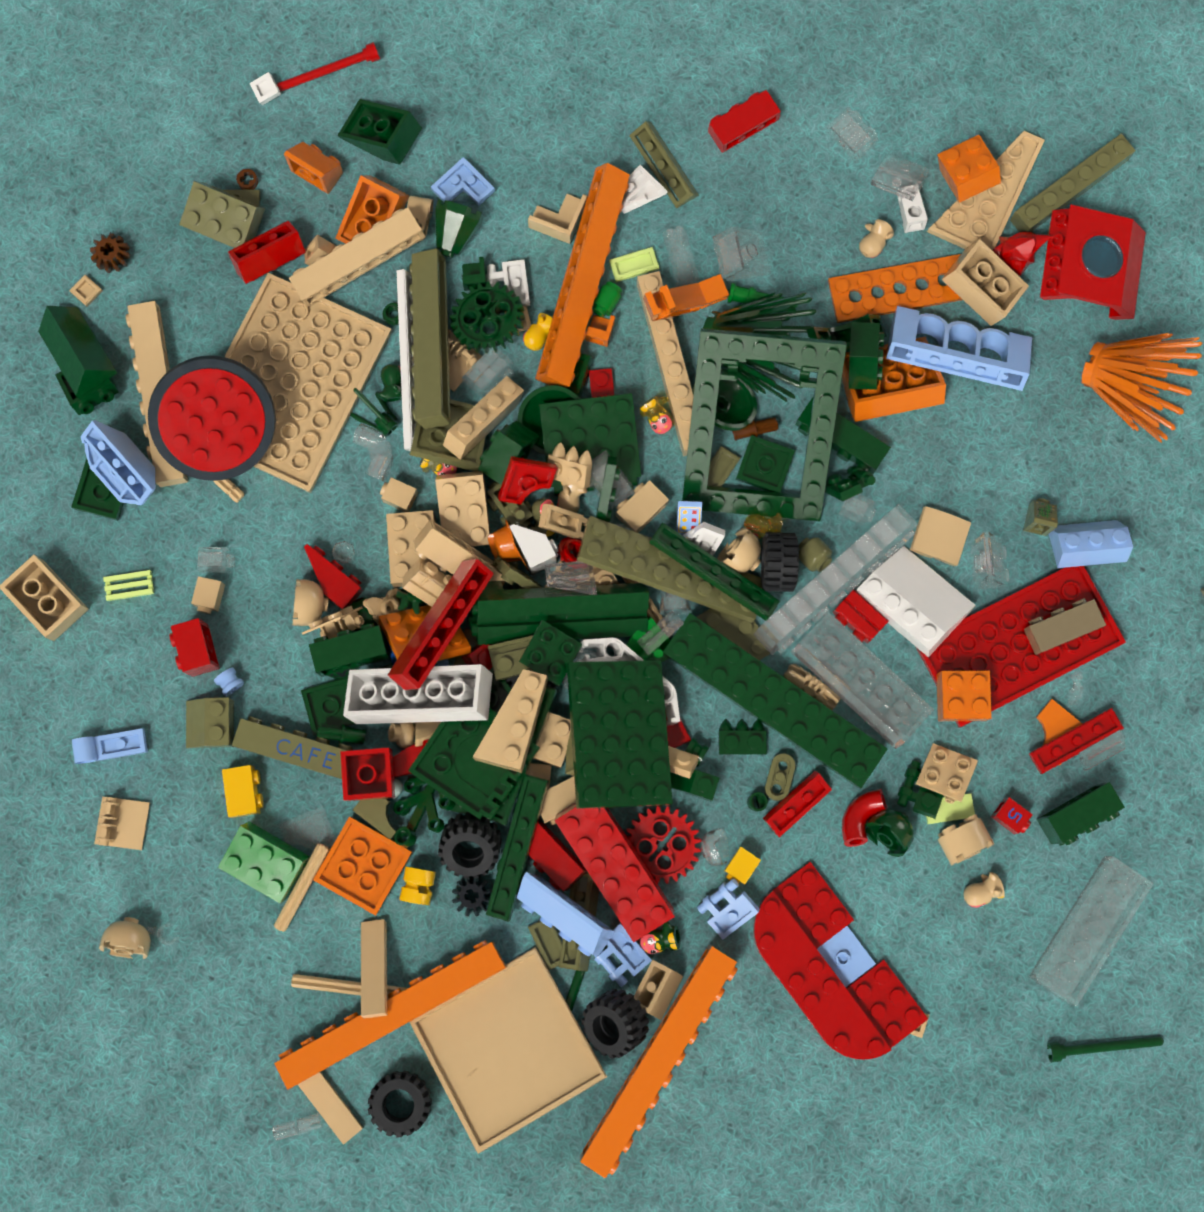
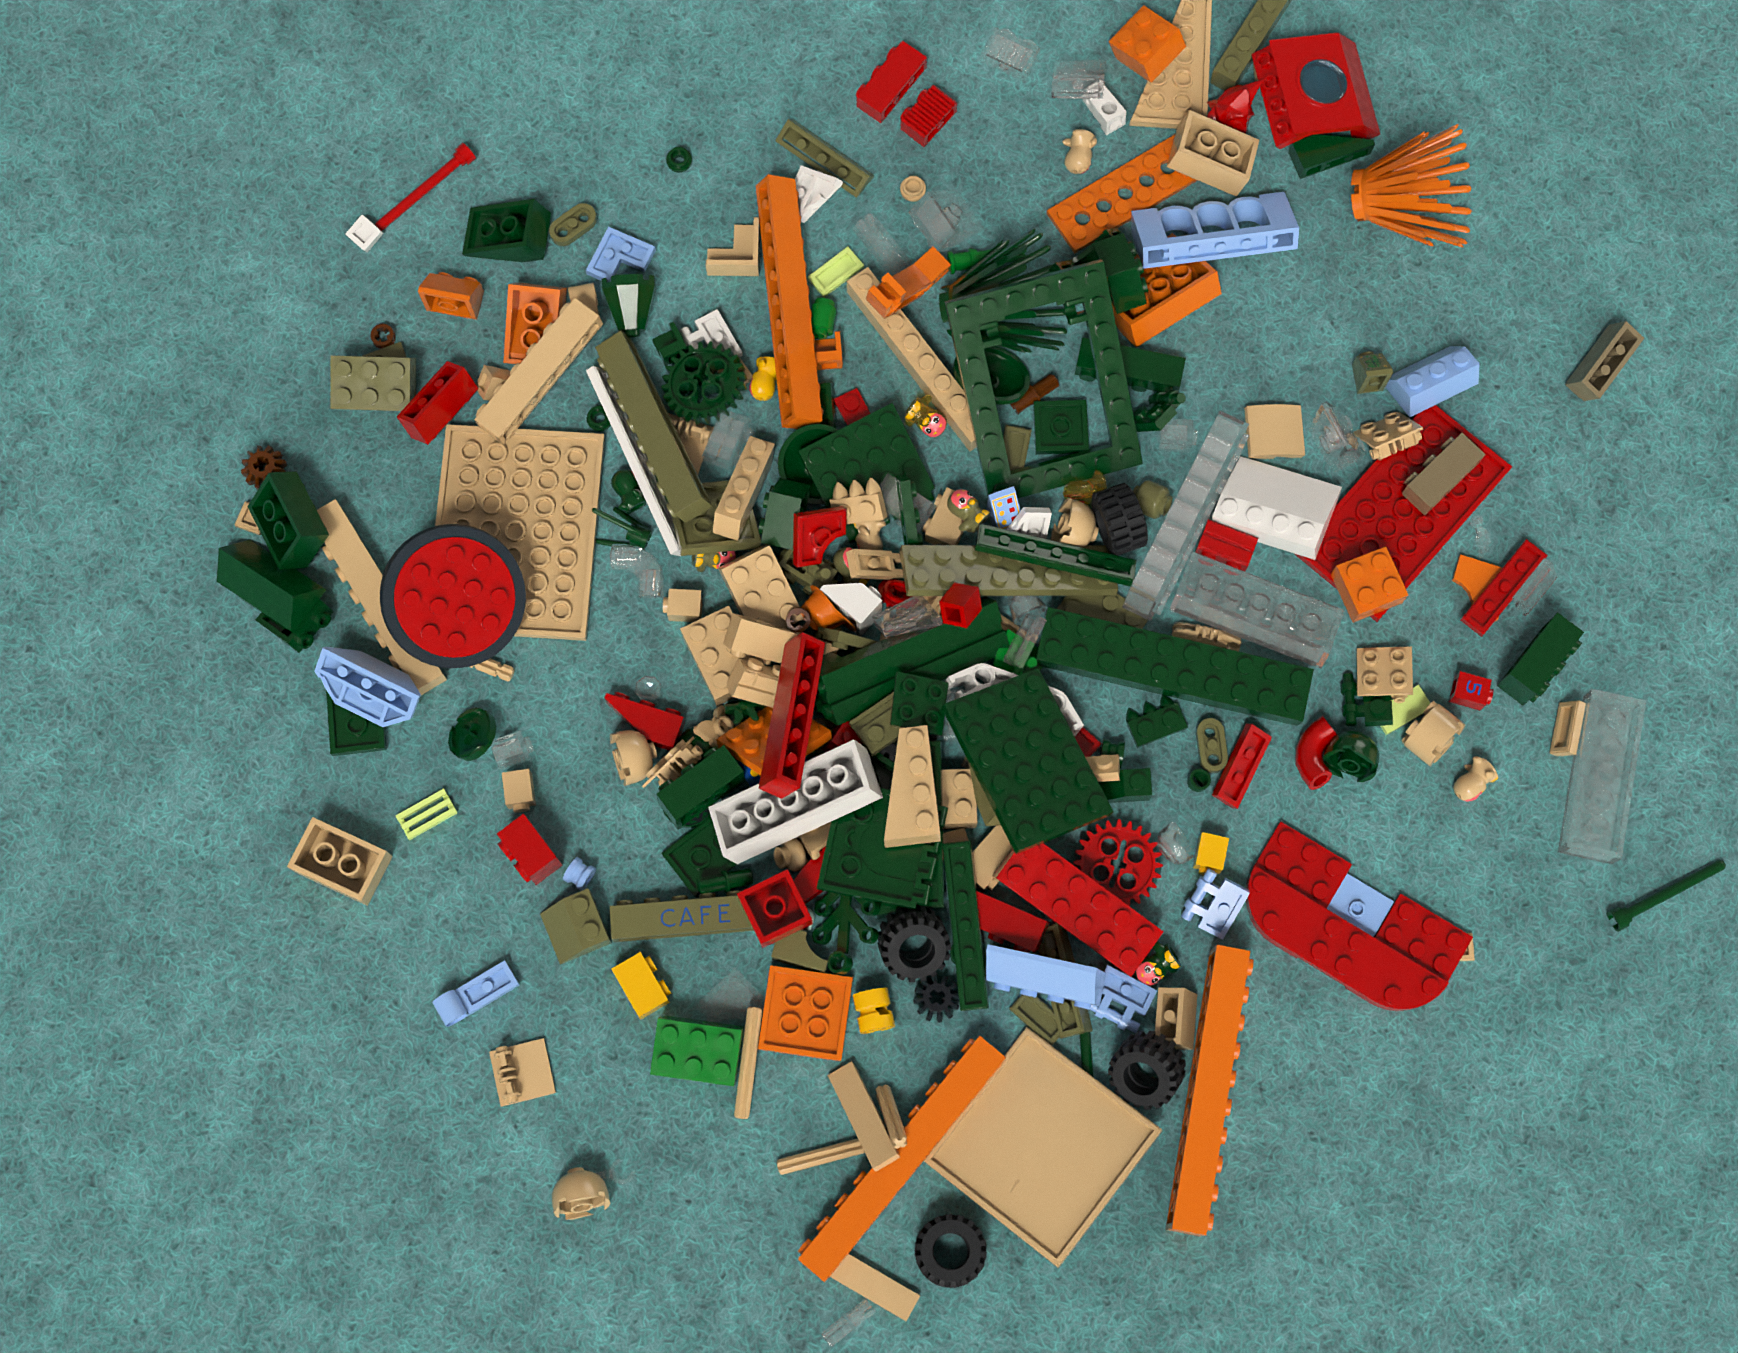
camera: 20 degrees left, 5 degrees down
(108, 304) = (288, 520): none -> dark green brick
(188, 535) = (472, 734): none -> dark green tile
(395, 978) = (891, 1116): none -> tan axle
(435, 143) = (570, 222): none -> olive plate
(483, 536) = (798, 628): none -> reddish brown bush
(544, 115) = (675, 153): none -> dark green plate
(616, 585) = (960, 605): none -> red brick
(657, 504) = (967, 508): none -> olive animal
(725, 218) = (912, 188): none -> tan plate
(762, 160) = (928, 115): none -> red brick
(1034, 572) = (1389, 434): none -> tan hinge
(1079, 878) = (1567, 728): none -> tan tile
(1082, 316) = (1324, 152): none -> dark green slope

